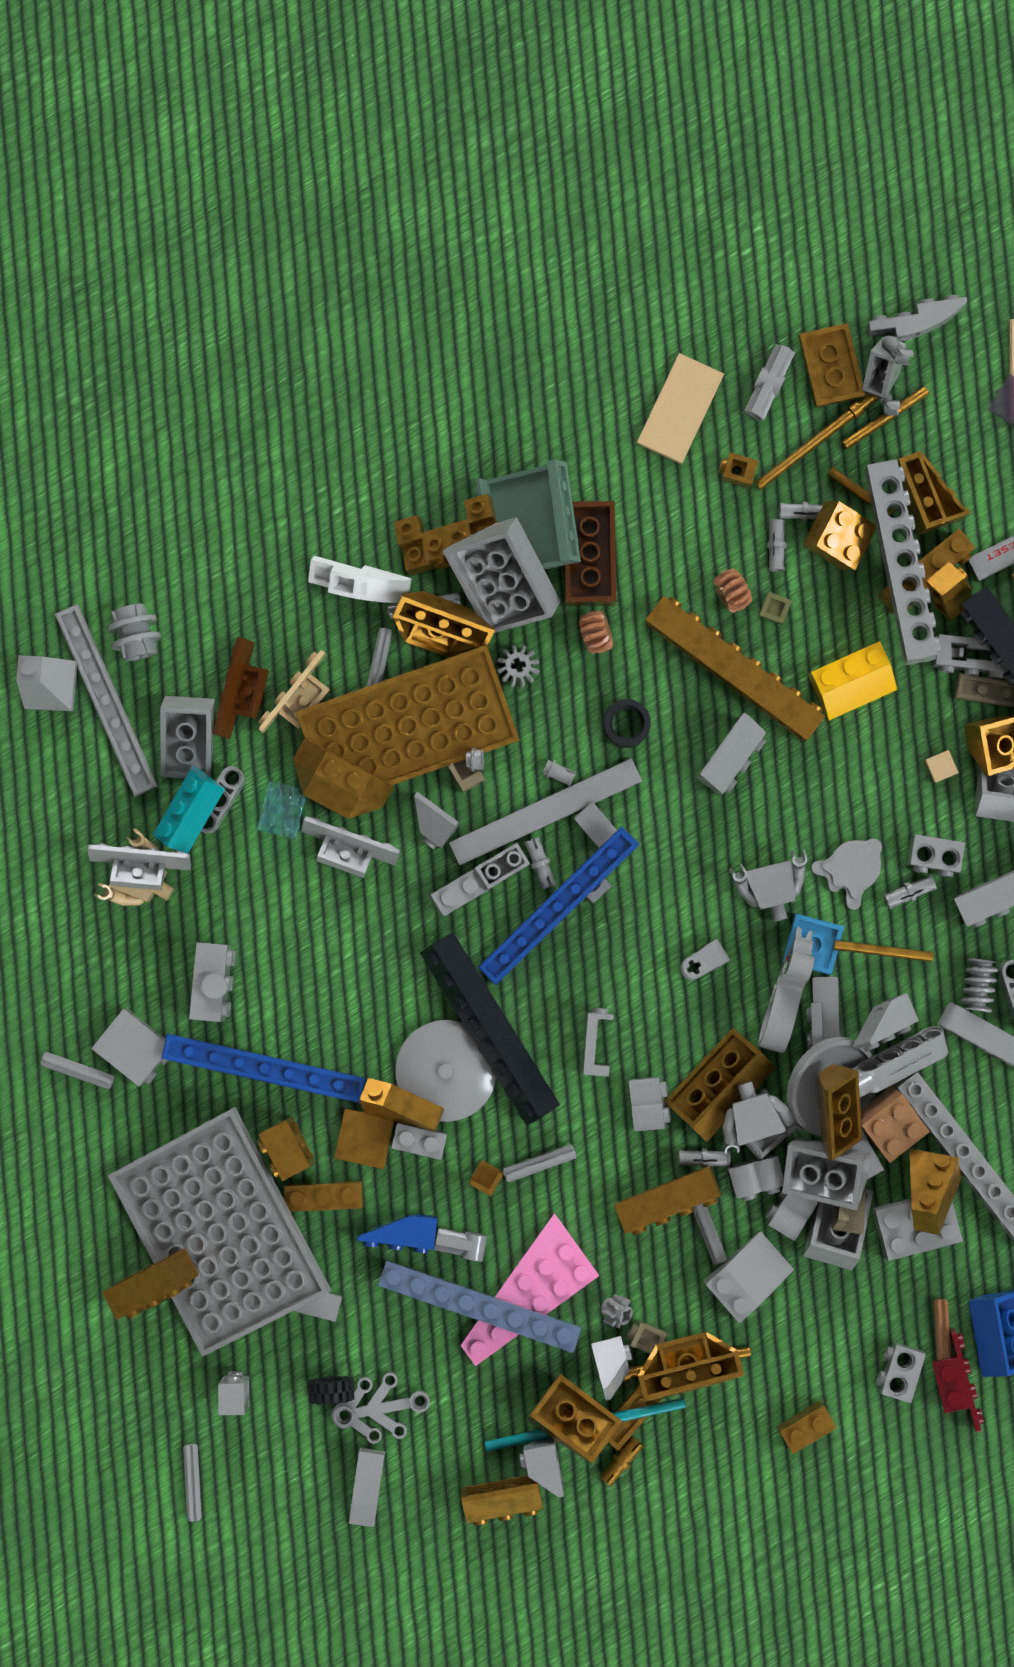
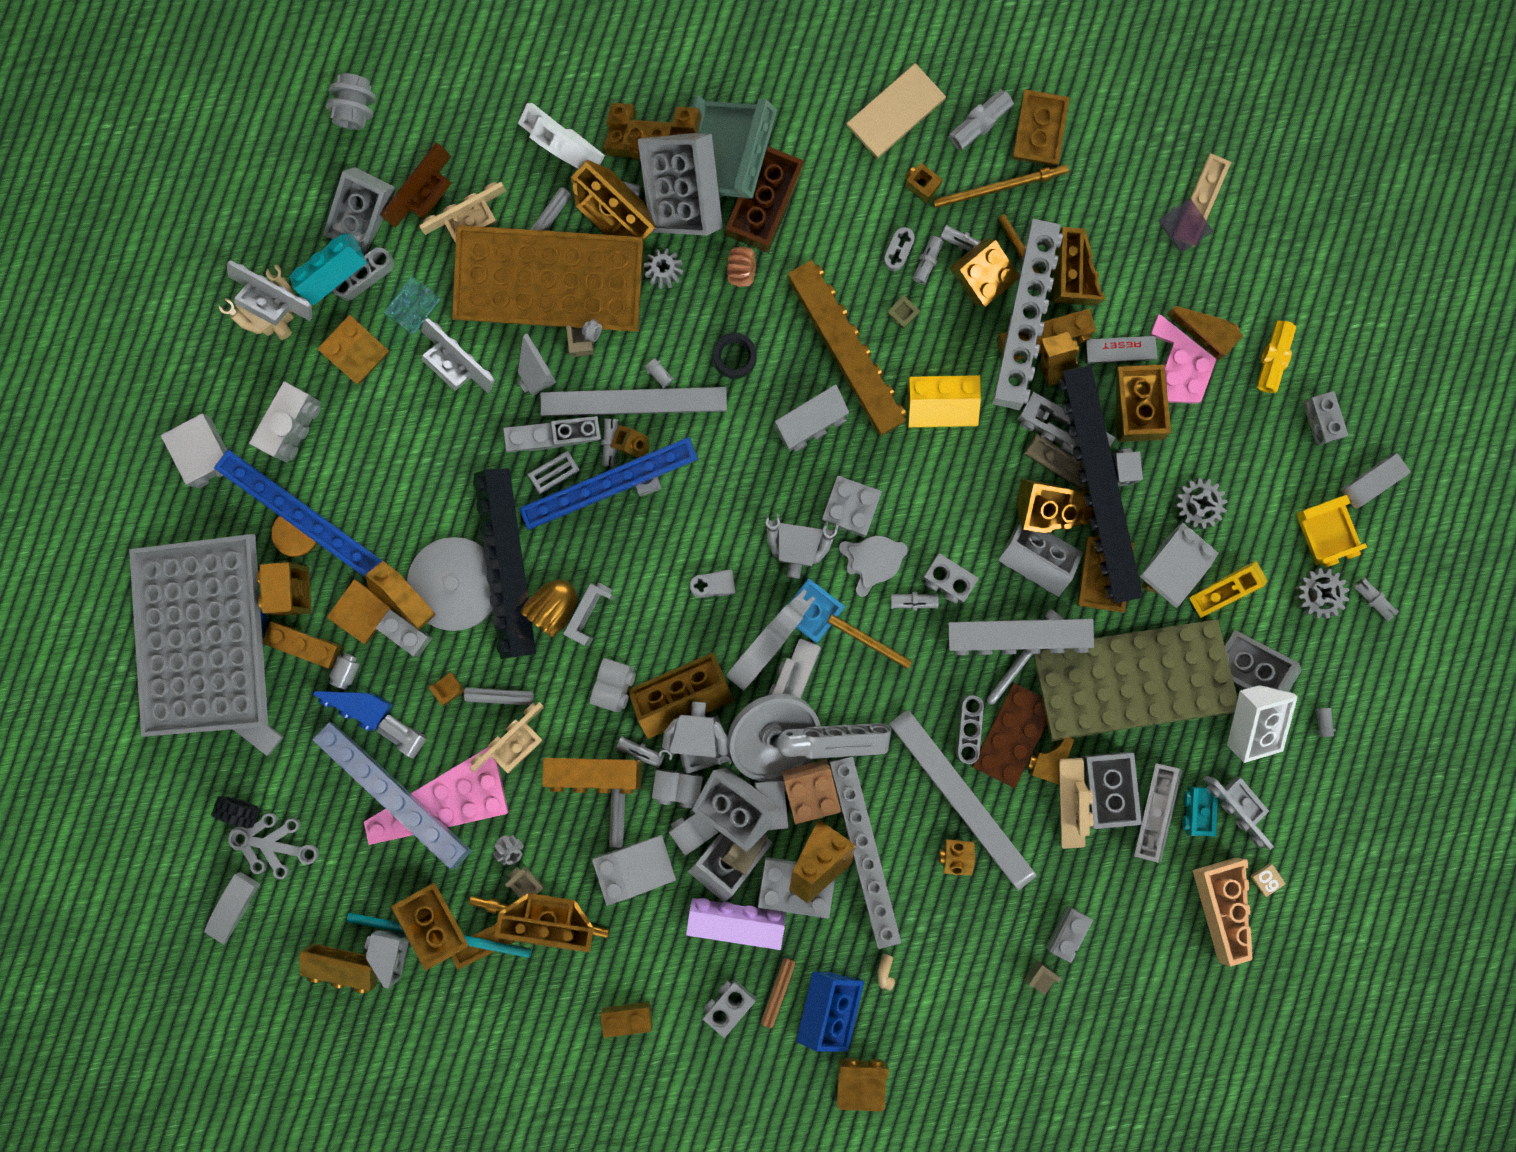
camera: 25 degrees right, 0 degrees up
(46, 683) = (260, 113): light grey slope -> none
(77, 1070) = (143, 450): light grey axle -> none
(106, 700) = (305, 151): light grey tile -> none
(151, 1285) = (120, 654): pearl gold brick -> none
(192, 1482) = (87, 839): light grey axle -> none
(233, 1394) = (151, 779): light grey brick -> none
(245, 880) = (353, 350): none -> pearl gold slope
(263, 1096) = (290, 539): none -> pearl gold tile
(338, 782) = (467, 300): pearl gold wedge -> none
(375, 1204) = (344, 671): none -> light grey brick
(483, 934) = (571, 462): none -> light grey tile
(555, 1051) = (551, 606): none -> pearl gold hair
(568, 854) = (635, 443): none -> pearl gold brick
(578, 1204) = (514, 745): none -> tan bracket
(595, 824) = (670, 427): light grey slope -> none
(611, 1363) = (482, 893): slope -> none
(621, 1461) = (457, 979): pearl gold pin -> none
(732, 590) = (873, 280): nougat gear -> none
(749, 546) = (894, 246): none -> light grey beam
(807, 824) = (851, 506): none -> light grey brick
(839, 1109) = (769, 758): pearl gold slope -> none
(873, 1286) = (736, 923): none -> lavender brick
(883, 370) = (1084, 148): light grey torso -> none
(883, 419) = (1066, 192): pearl gold bar -> none
(884, 1020) = (844, 700): light grey slope -> none
(926, 318) = (1138, 122): light grey slope -> none
(941, 766) = (987, 506): tan tile -> none
(954, 1383) = (769, 1036): dark red bracket -> none
(979, 985) = (939, 705): light grey piece -> none

